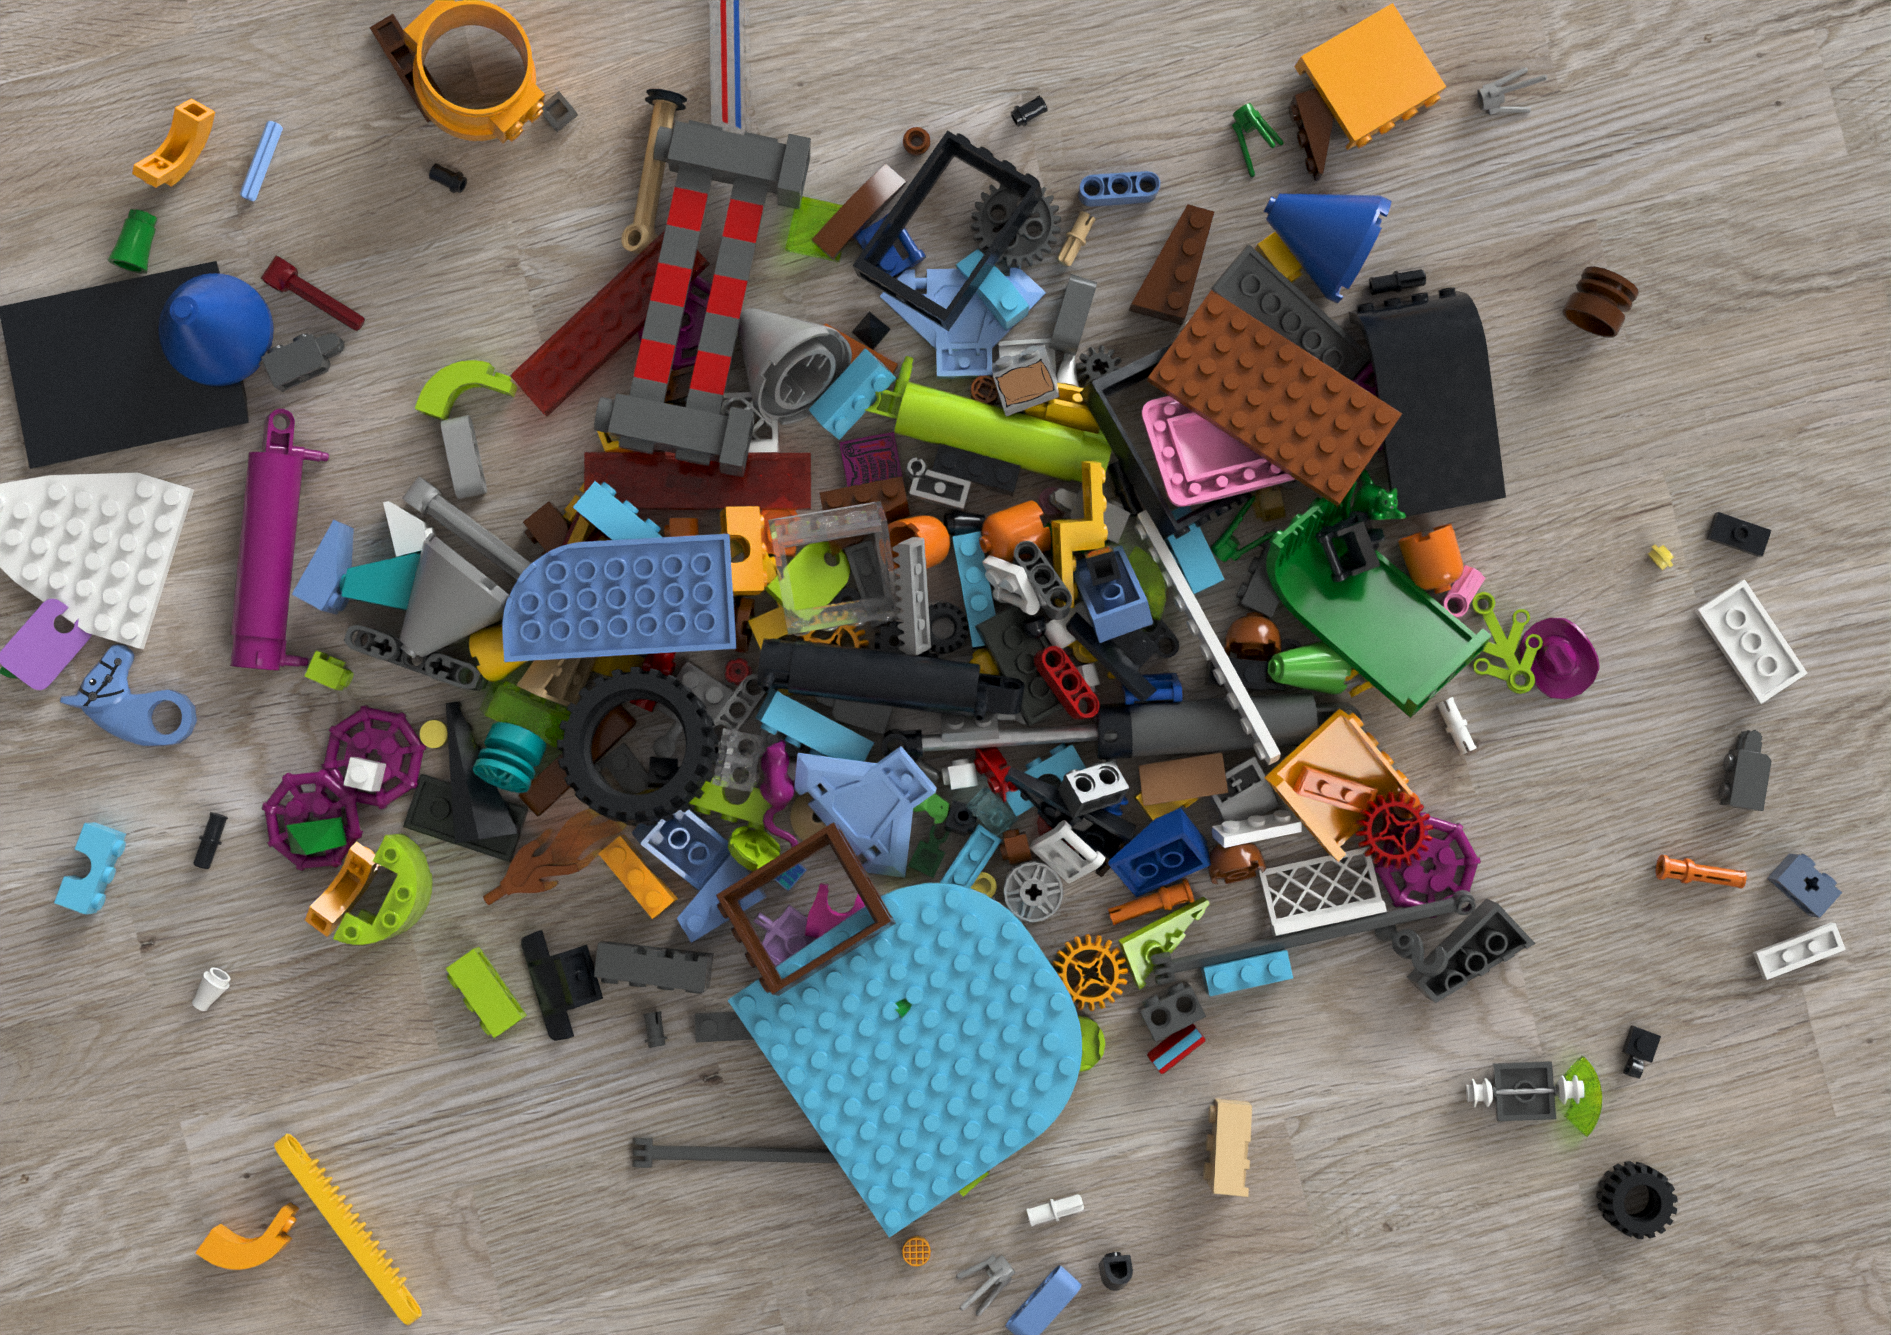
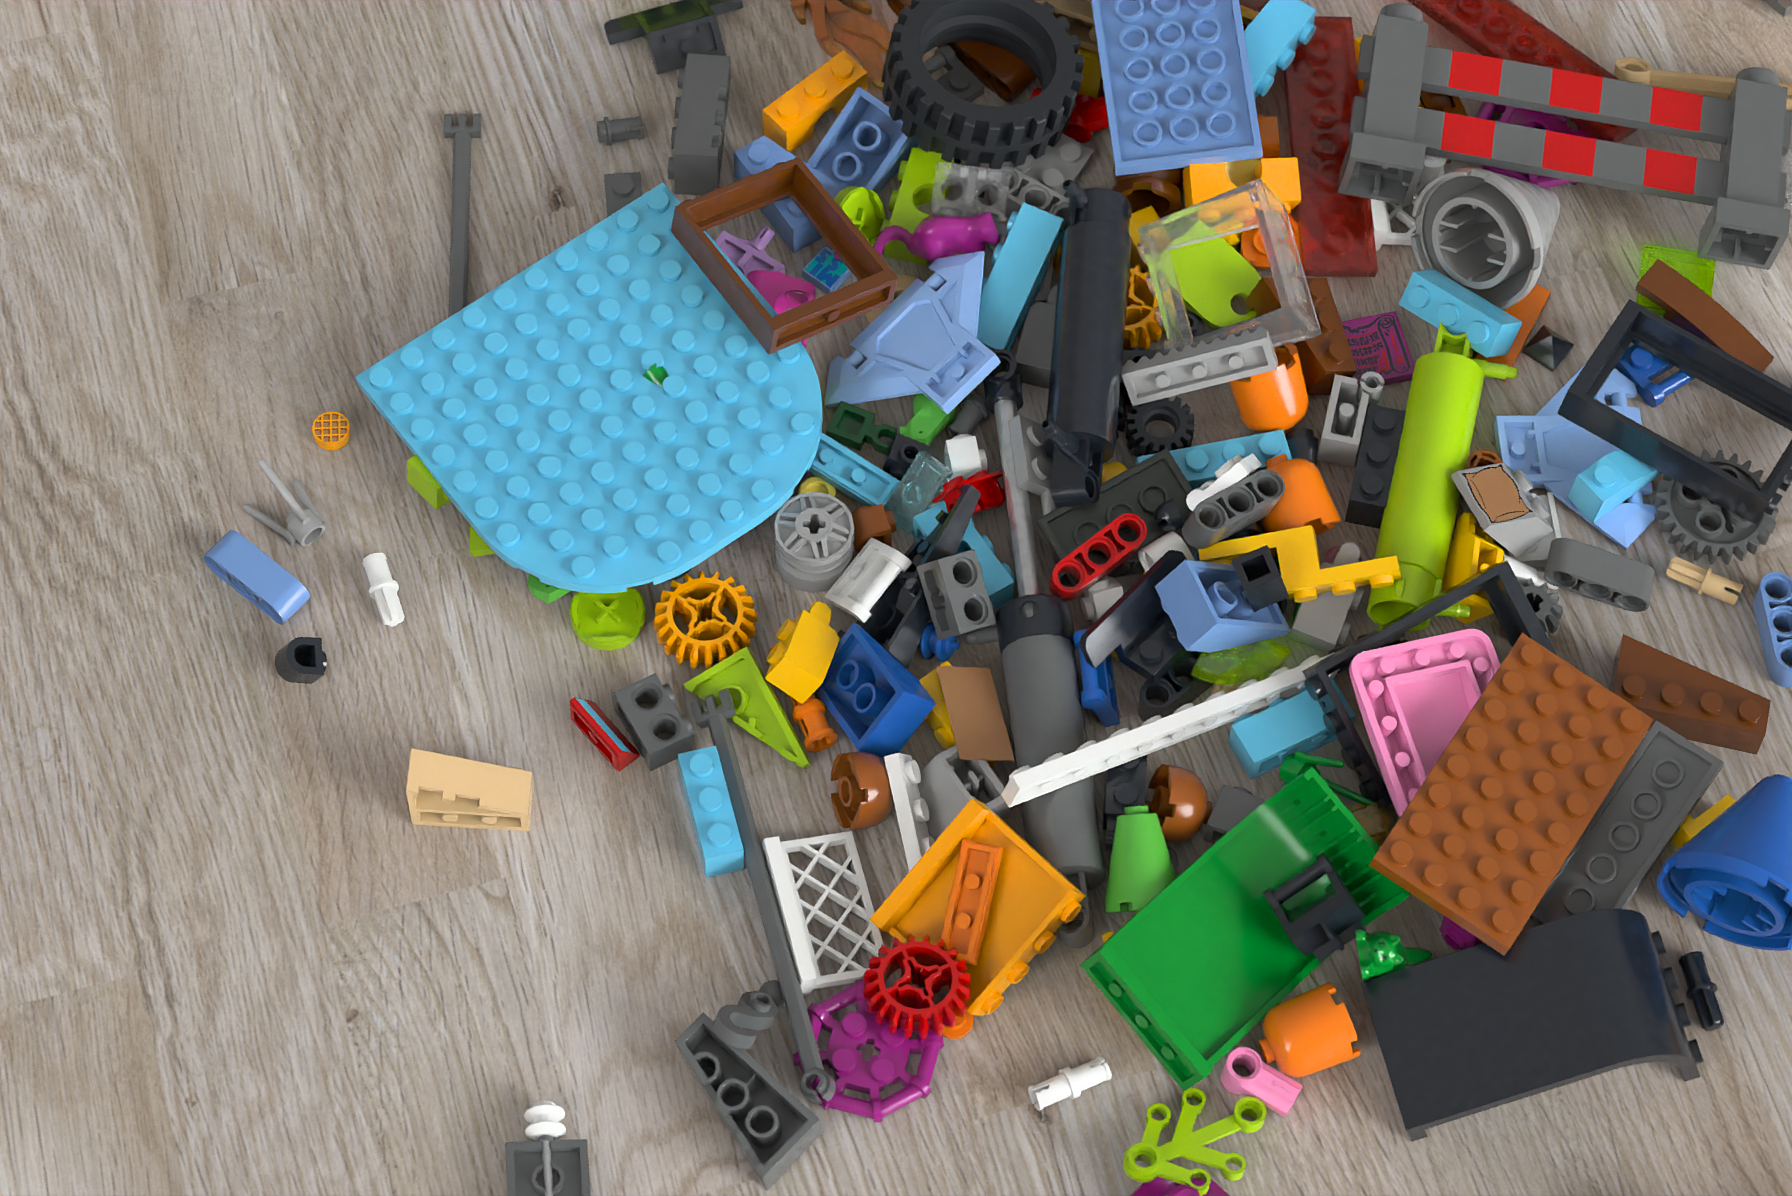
camera: 85 degrees right, 25 degrees down
(1126, 901) = (803, 652): none -> yellow hinge

